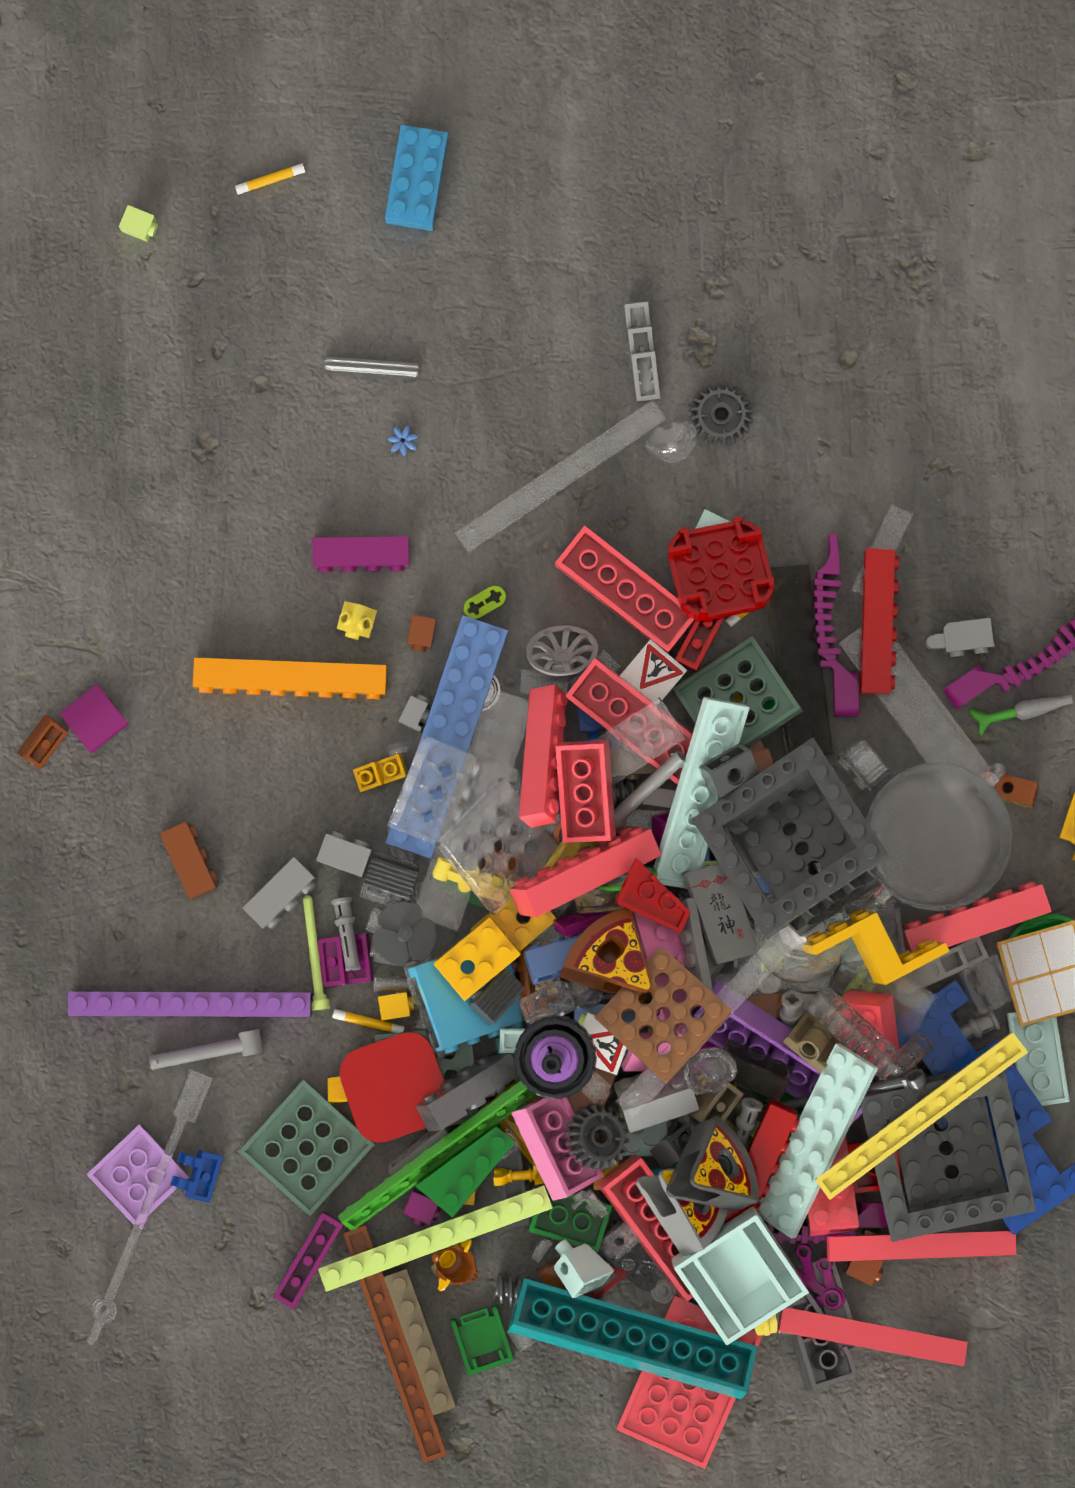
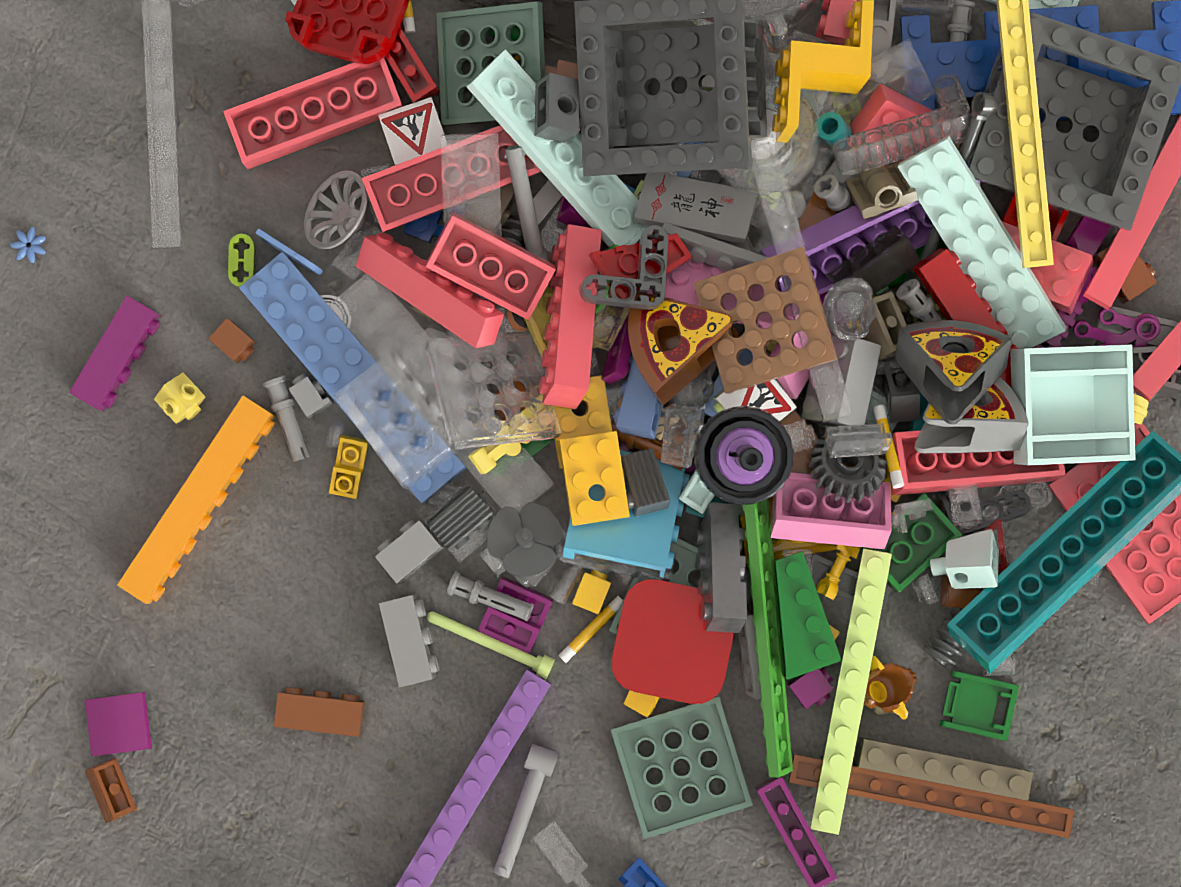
camera: 55 degrees left, 0 degrees up
(396, 697) = (282, 405): none -> light grey pin
(510, 635) = (289, 252): none -> medium blue window
(618, 1133) = (857, 440): none -> clear panel
(628, 1159) = (891, 456): none -> bar
(639, 910) = (644, 280): none -> dark grey beam
(838, 980) = (833, 127): none -> teal brick

